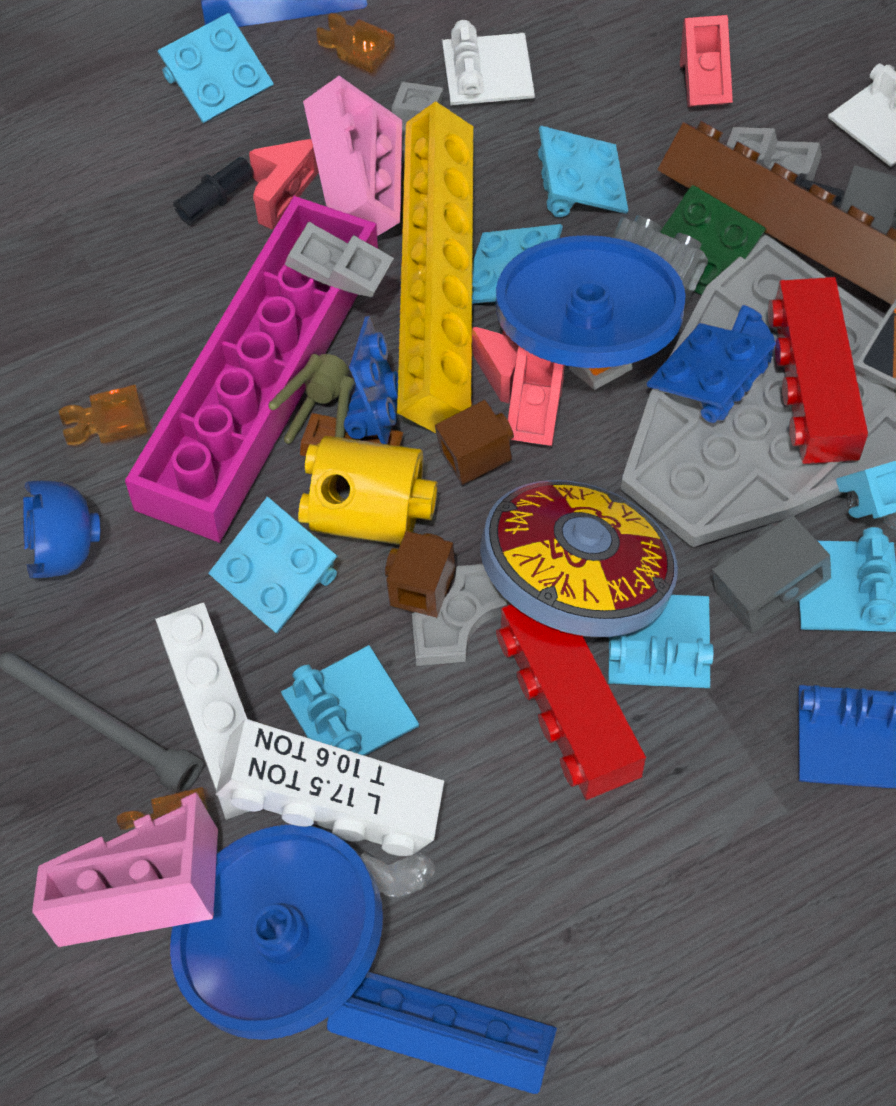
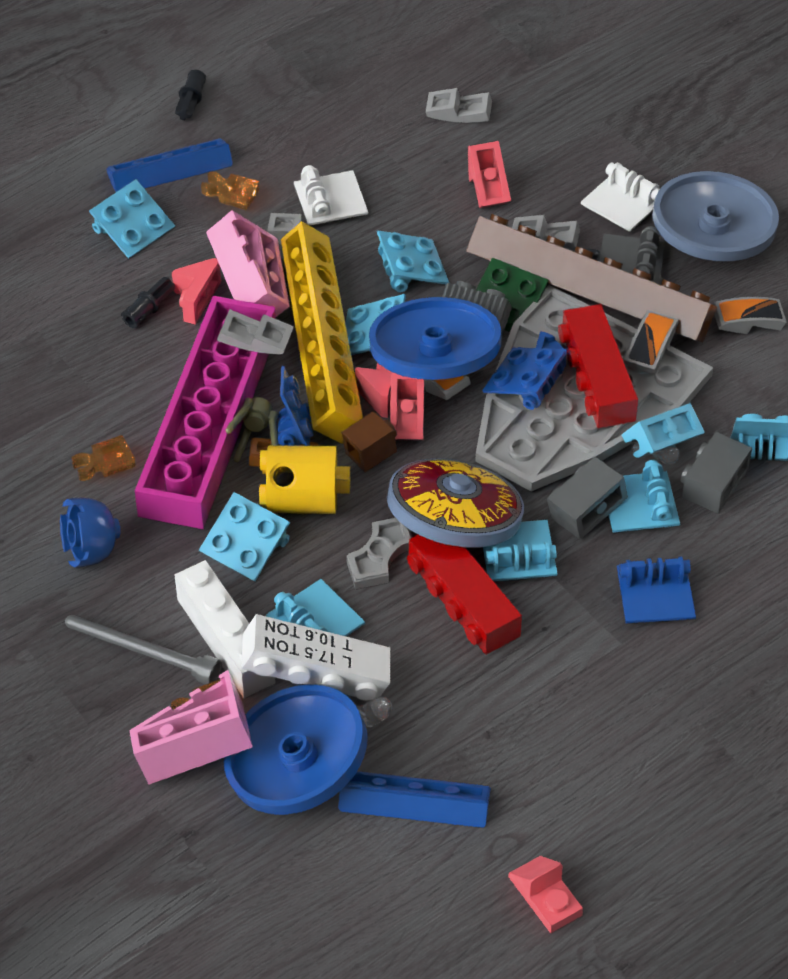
camera: 10 degrees left, 10 degrees down
(420, 573) = (348, 526): reddish brown brick -> none

